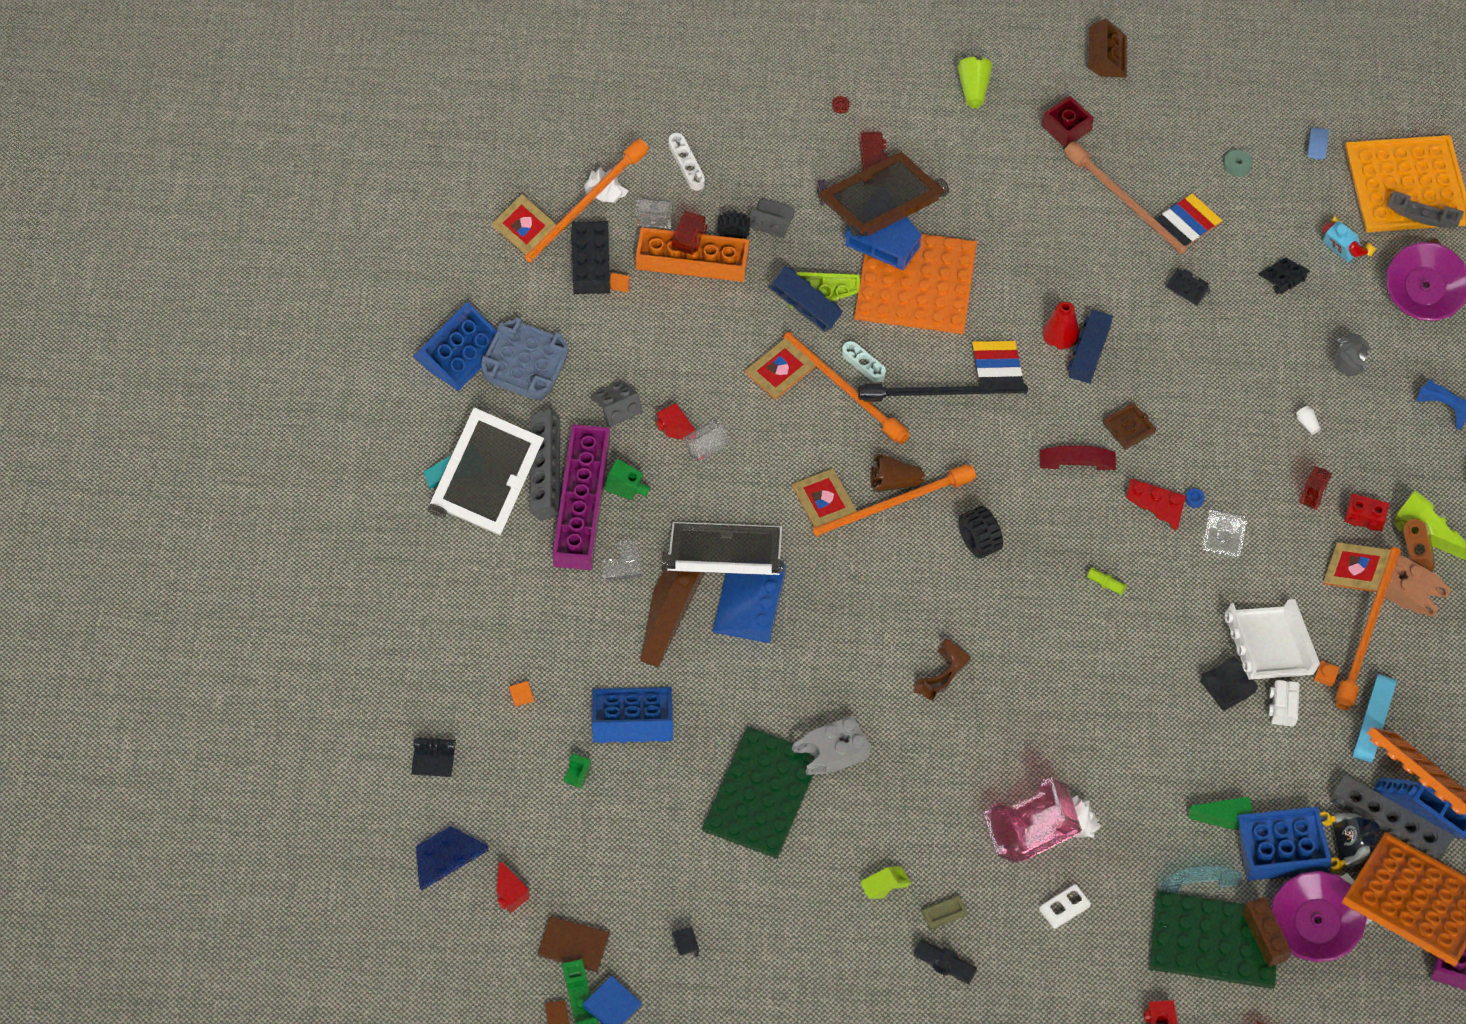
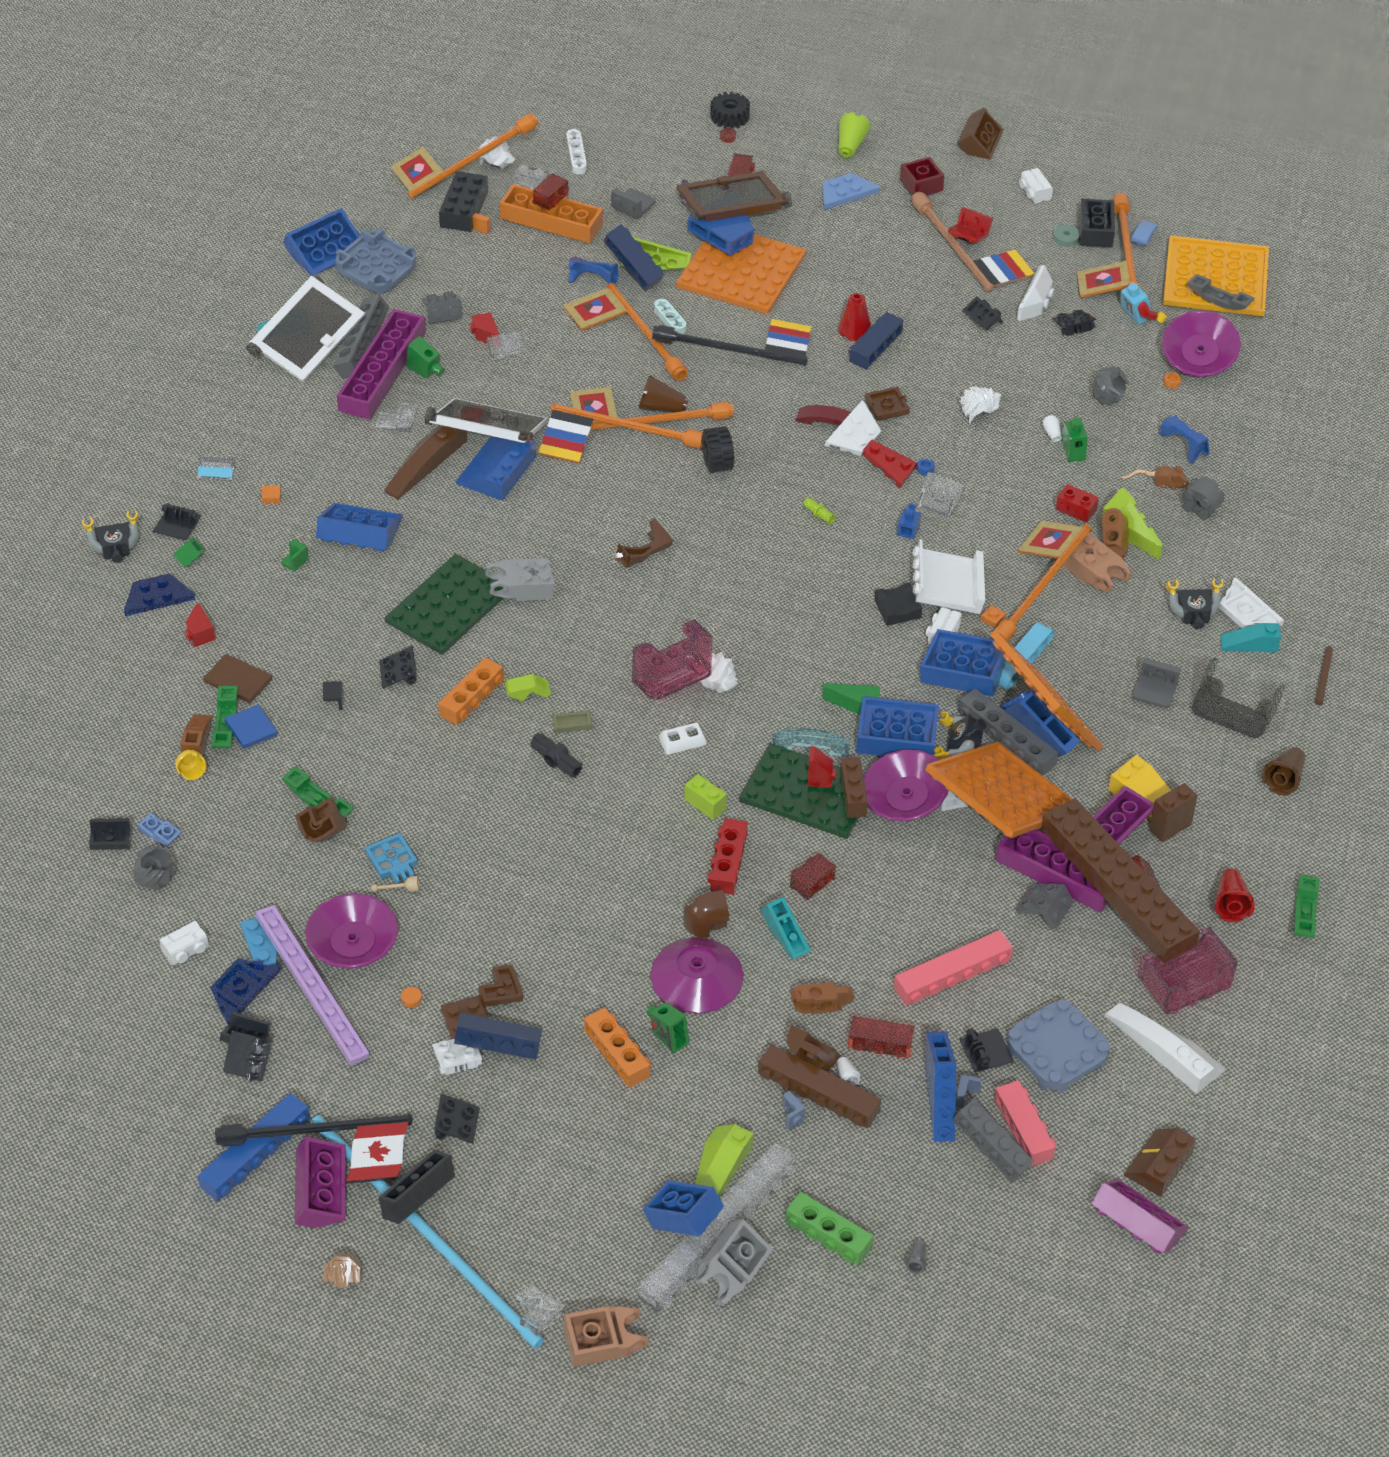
camera: 15 degrees right, 10 degrees down
(375, 797) = (113, 540): none -> torso
(450, 674) = (216, 468): none -> slope
(462, 793) = (189, 552): none -> green panel
(733, 225) = (598, 193): black tyre -> none
(740, 890) = (398, 667): none -> black hinge
(776, 316) = (580, 265): none -> blue animal
(812, 535) = (570, 429): none -> flag
(833, 81) = (730, 110): none -> black tyre
(835, 872) = (471, 691): none -> orange brick
(990, 151) = (846, 189): none -> medium blue wing
(1111, 471) = (855, 431): none -> white wing
(1117, 976) = (705, 796): none -> lime brick
(1140, 175) = (972, 225): none -> red bracket
(1187, 105) = (1036, 185): none -> white brick
(1205, 576) = (909, 522): none -> blue brick
(1226, 406) = (978, 401): none -> white hair
(1227, 919) = (820, 769): none -> red slope
(1236, 249) = (1037, 295): none -> white wedge
(1267, 143) = (1096, 222): none -> black brick
(1306, 209) = (1114, 275): none -> flag
(1315, 487) = (1036, 475): clear red brick -> none
(1324, 744) = (962, 662): none -> blue slope
(1338, 433) = (1074, 432): none -> green torso
(1406, 328) = (1172, 380): none -> orange tile
(1441, 455) = (1166, 476): none -> dark orange animal

